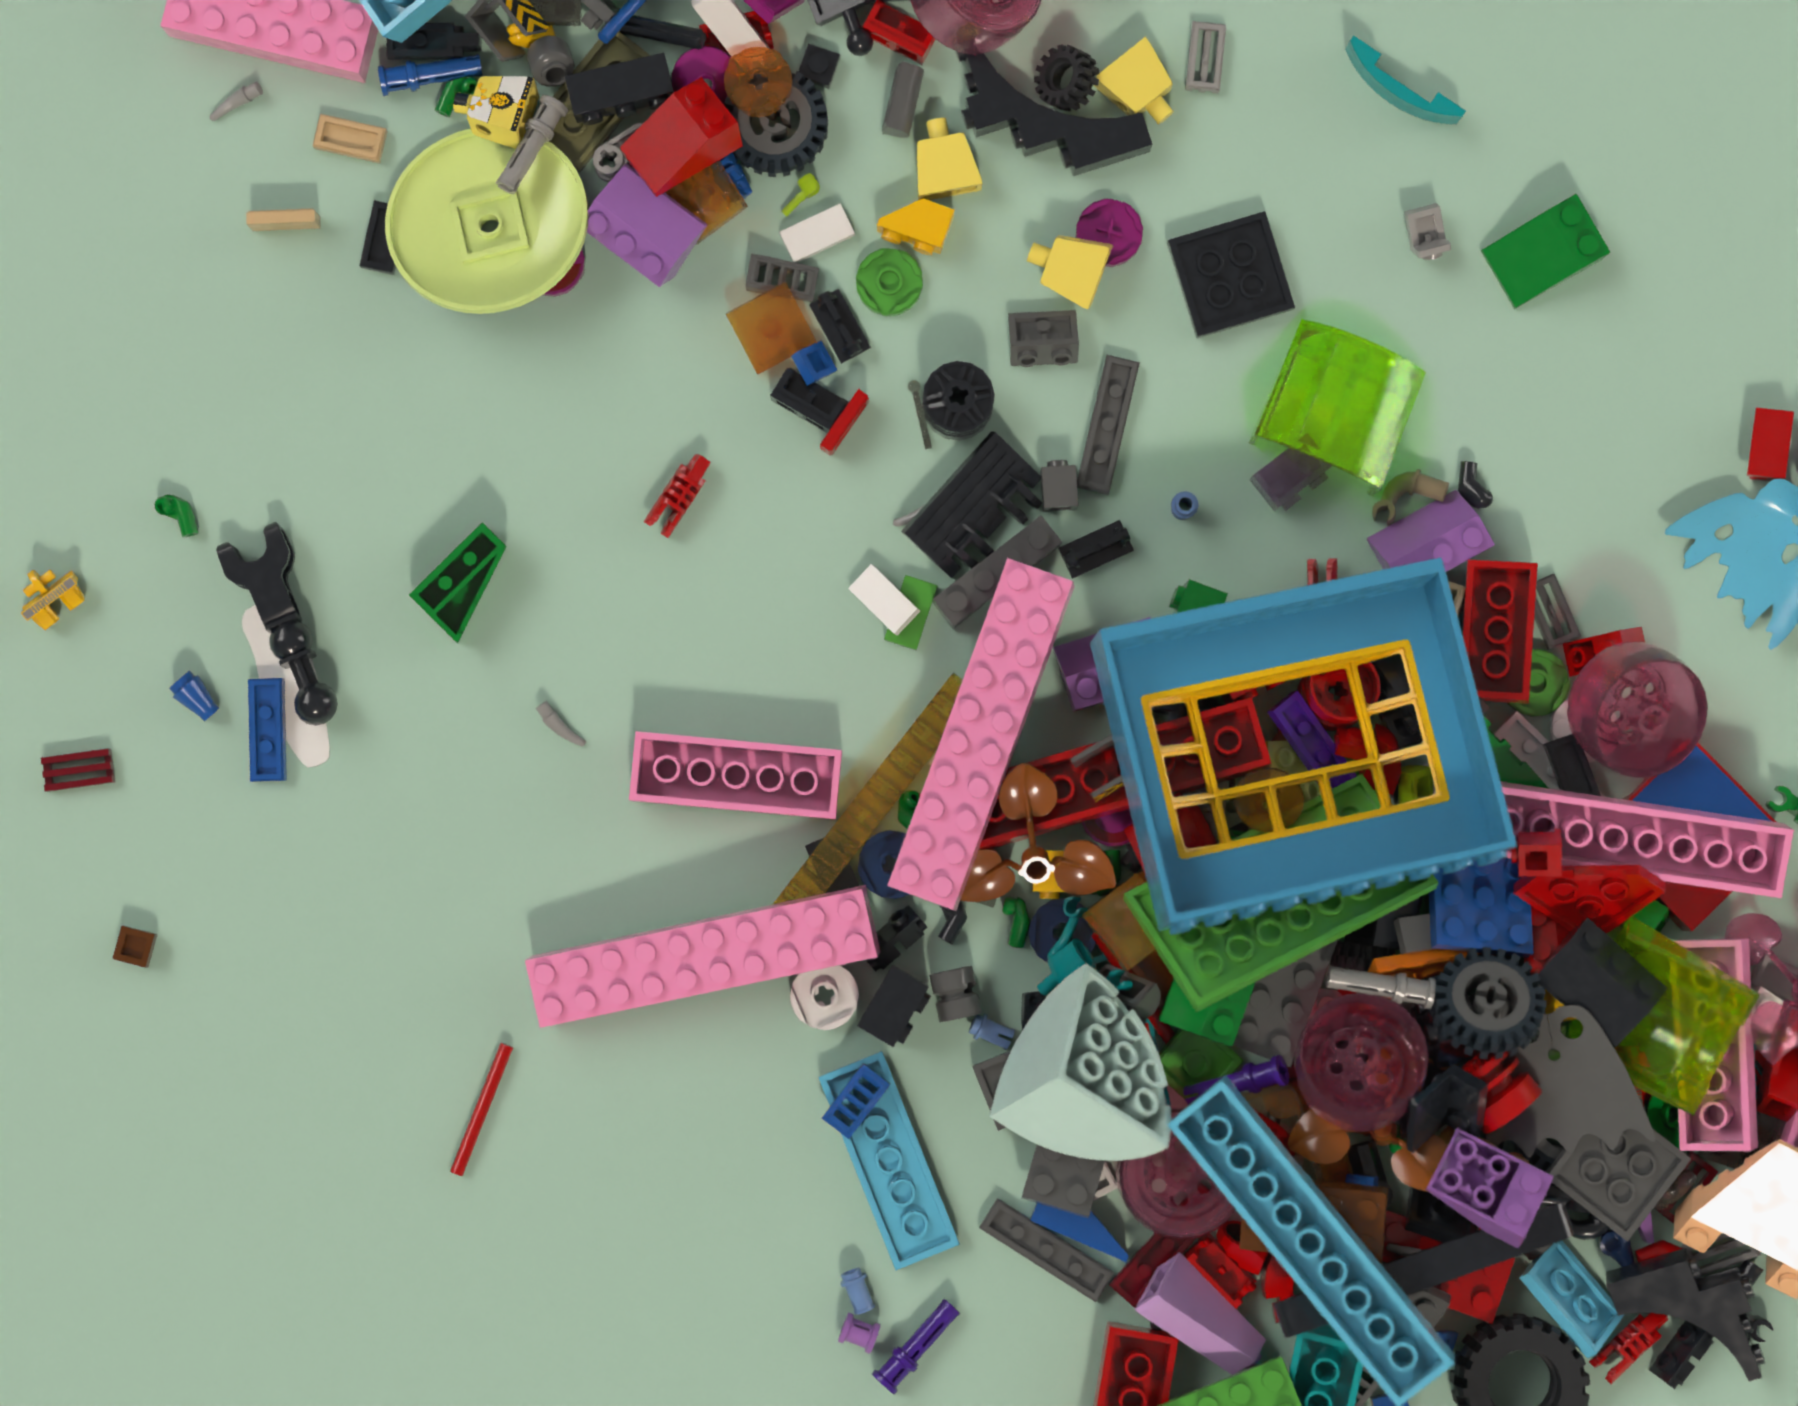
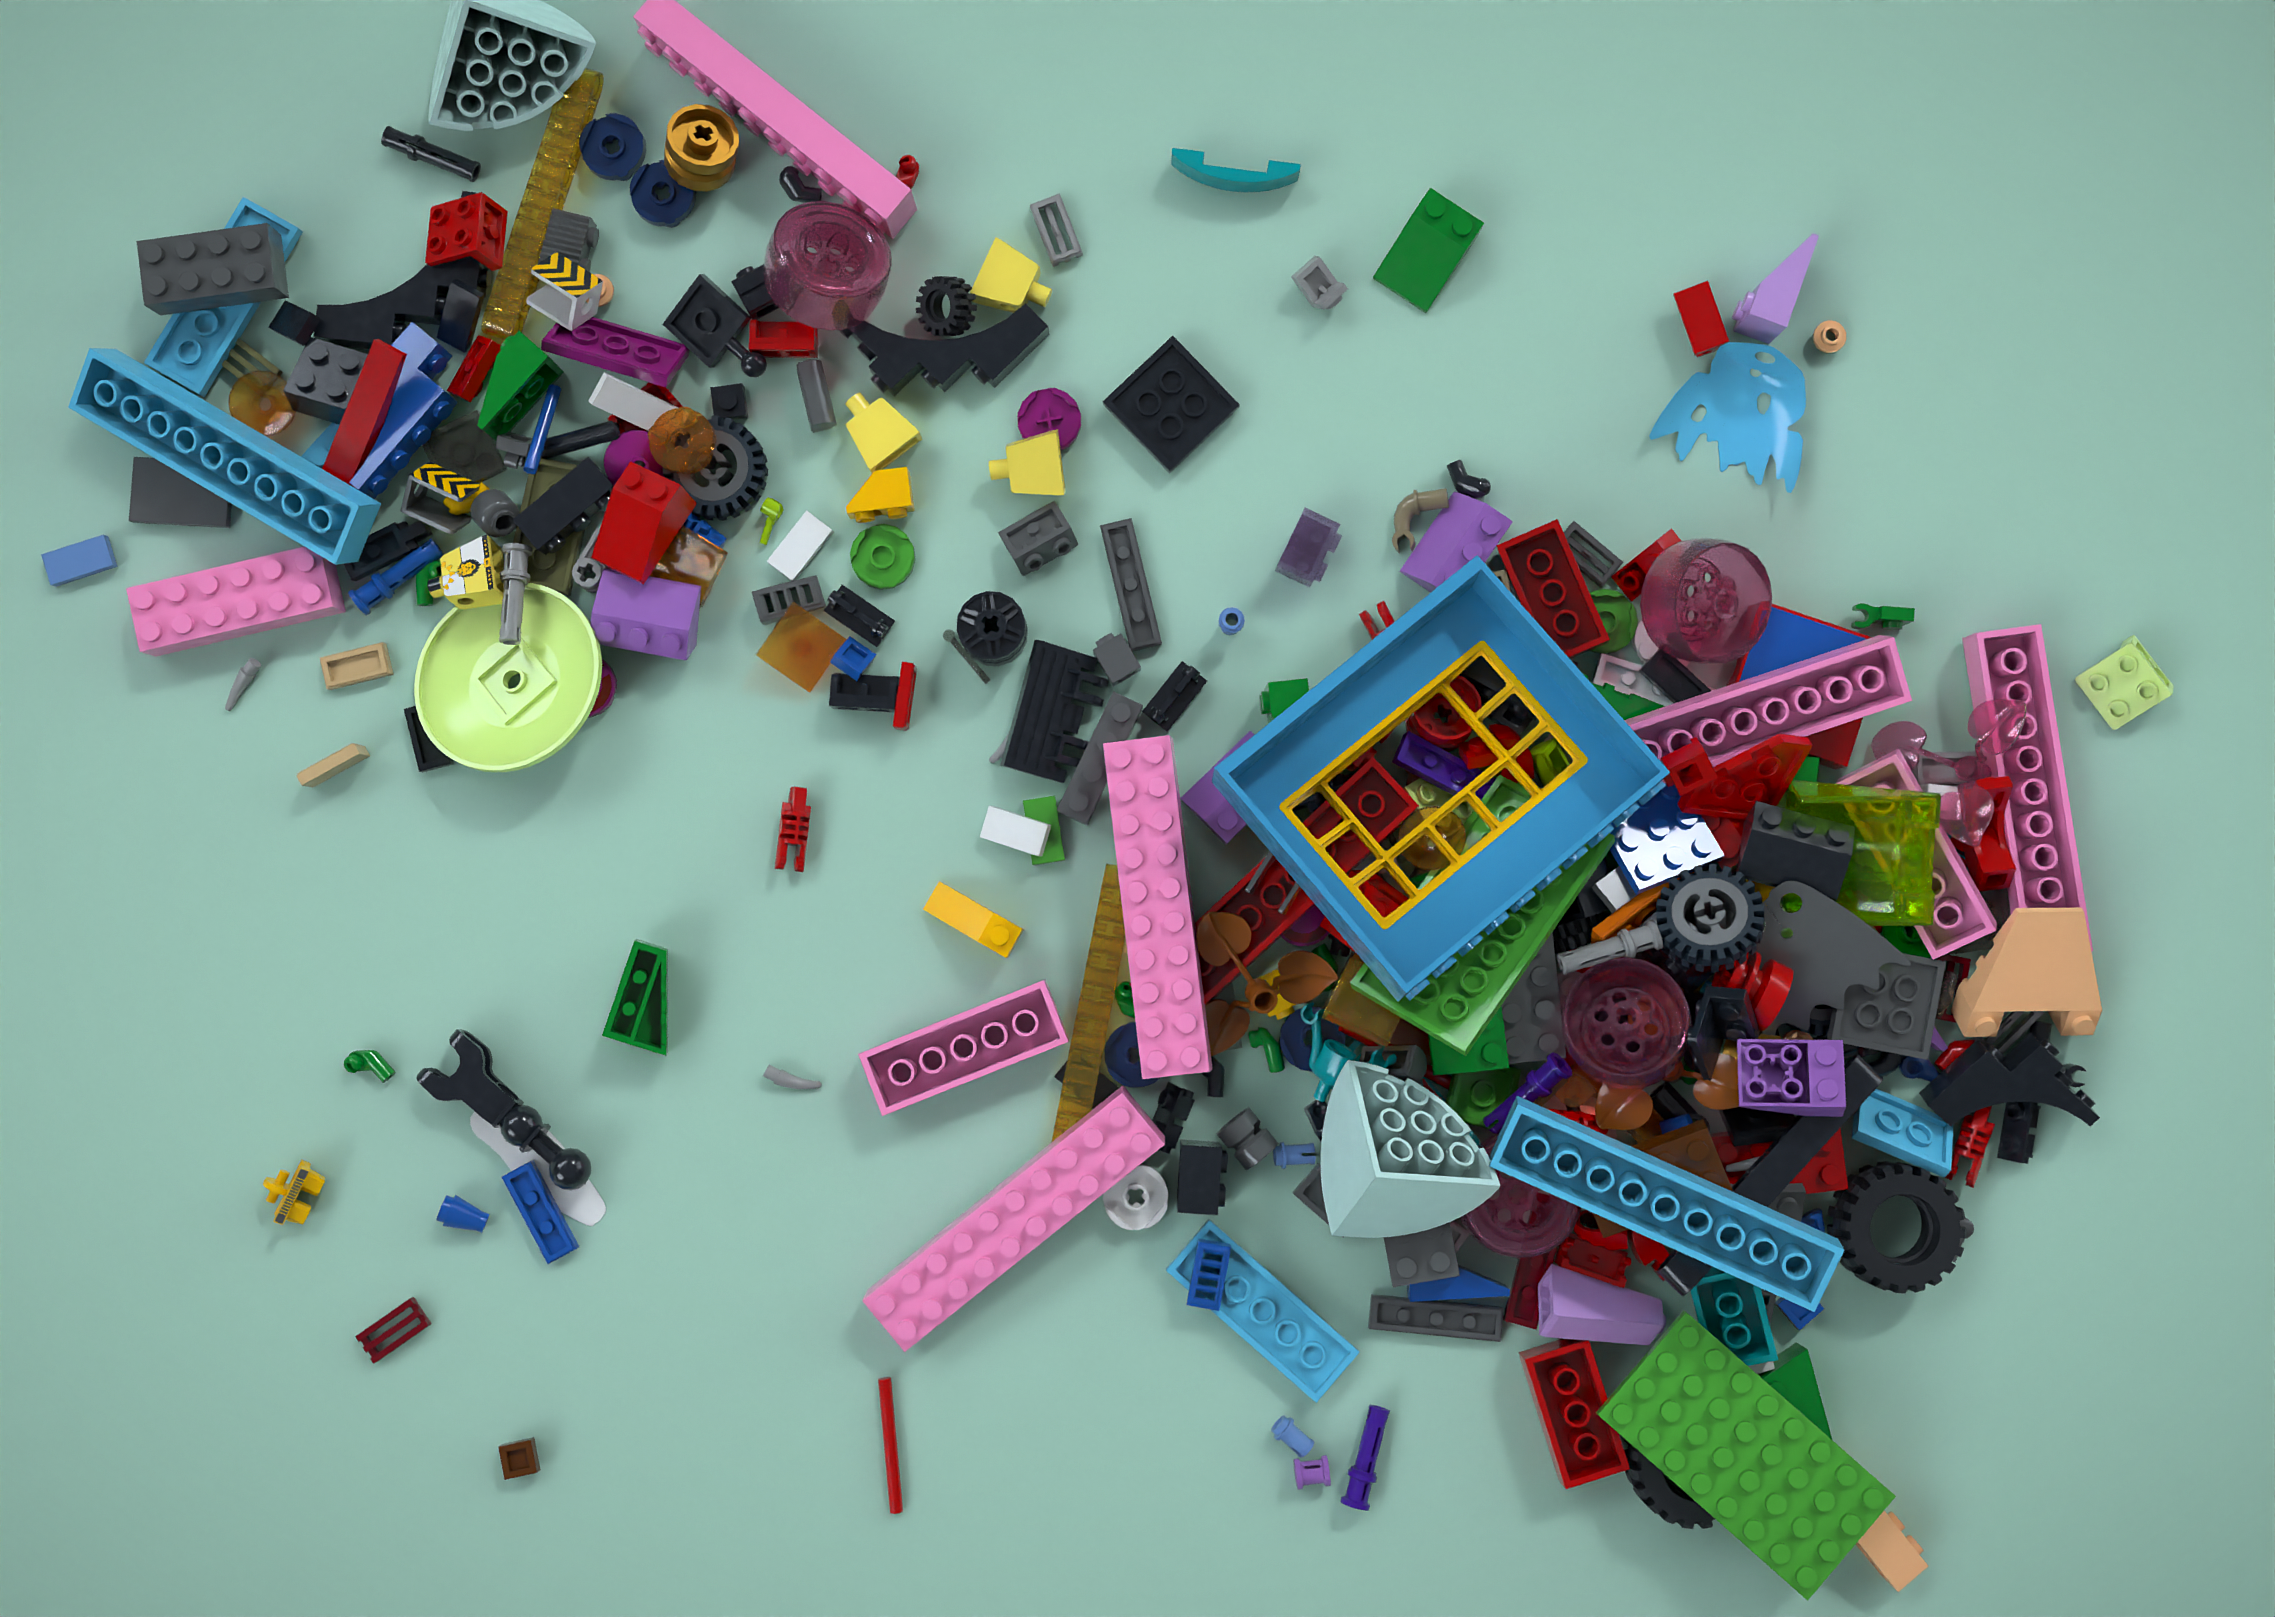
camera: 25 degrees left, 0 degrees up
(803, 662) = (973, 919): none -> yellow slope
(1340, 401) = (1319, 465): clear neon green windscreen -> none

